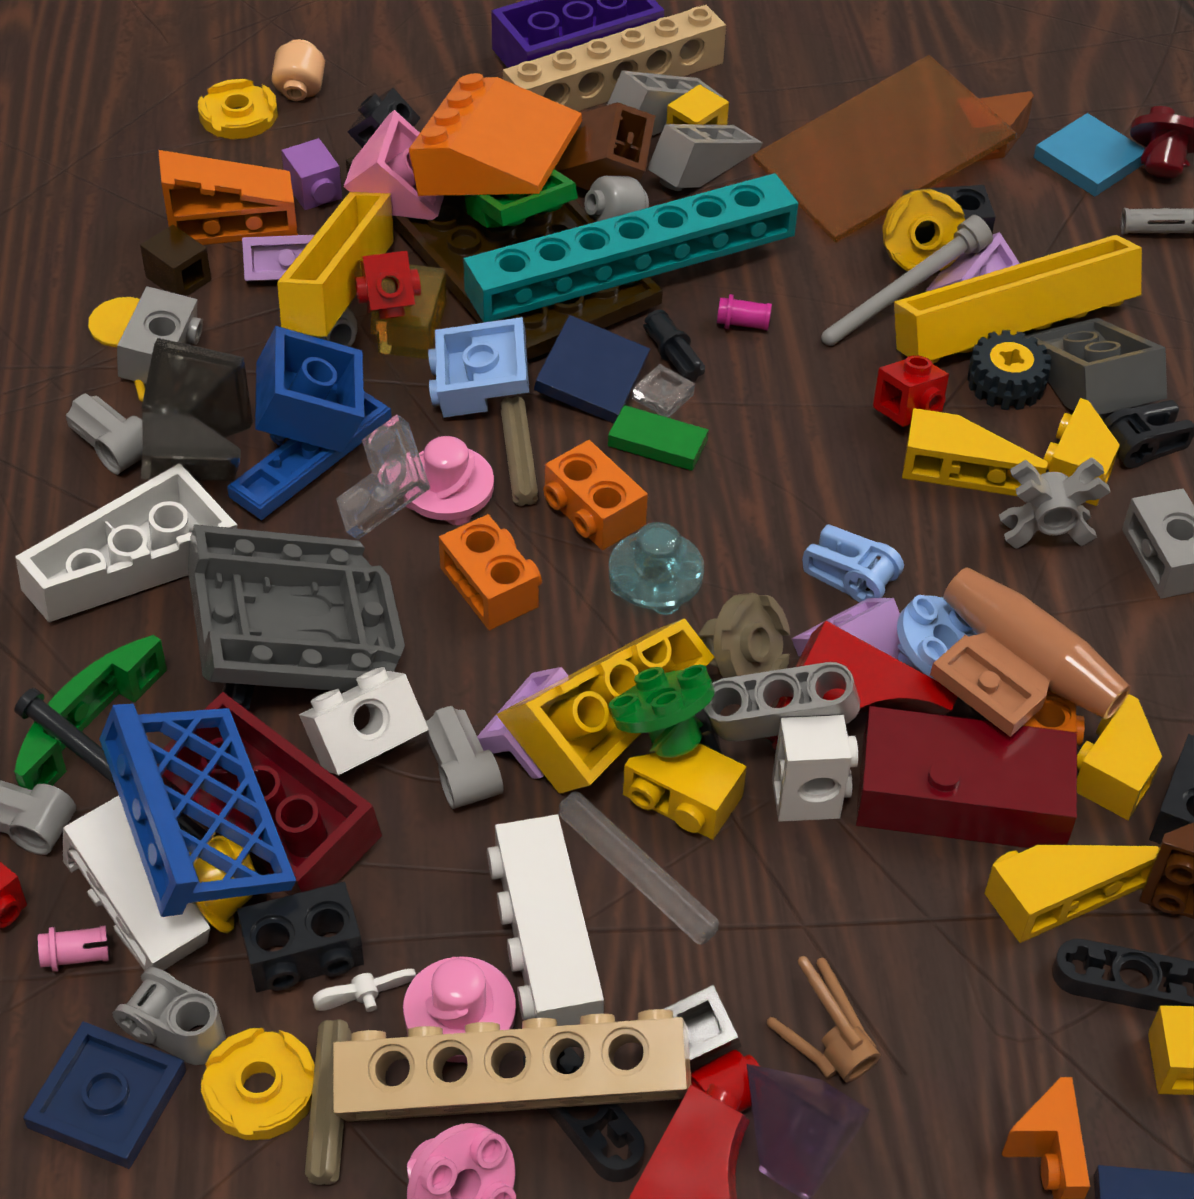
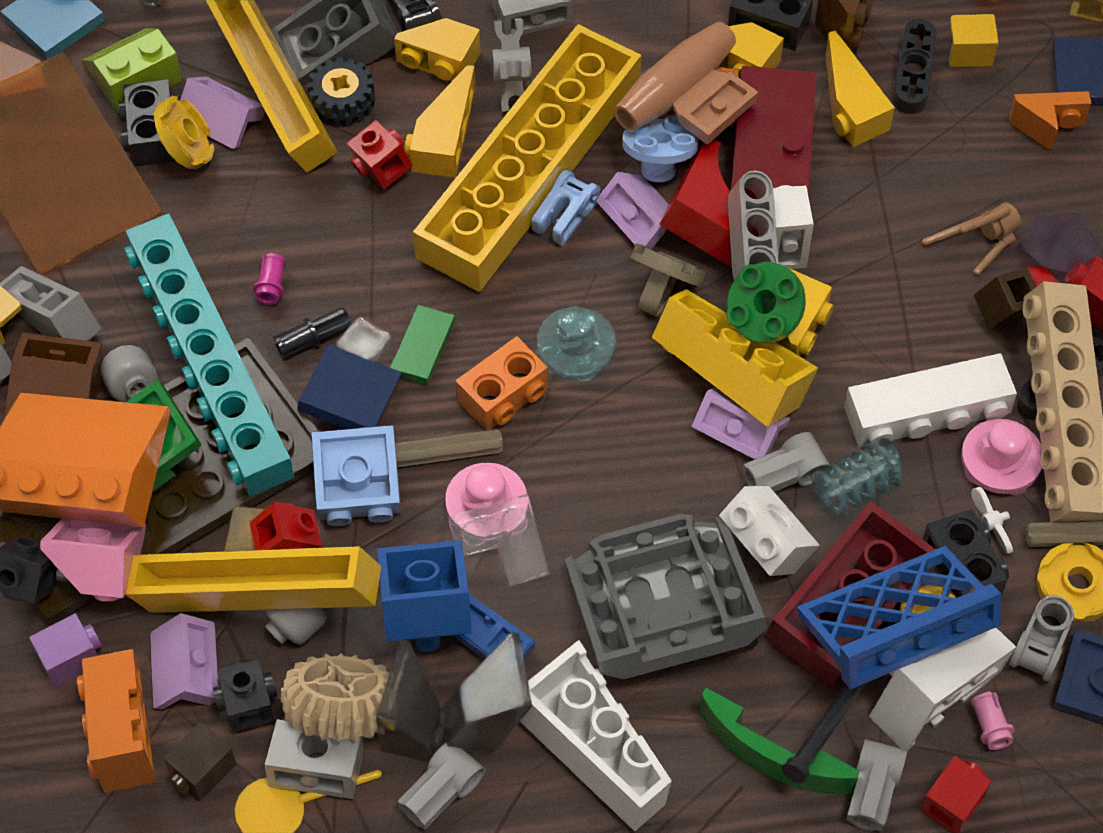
camera: 90 degrees left, 10 degrees up
(216, 324) = (334, 696): none -> tan gear
(237, 286) = (245, 694): none -> black brick
(433, 828) = (858, 476): none -> clear light blue piece
(489, 571) = (600, 464): orange brick -> none
(639, 868) = (864, 351): clear axle -> none
(934, 521) = (519, 162): none -> yellow brick
(970, 237) = (201, 94): light grey piece -> none
(1025, 208) = (133, 60): none -> lime slope

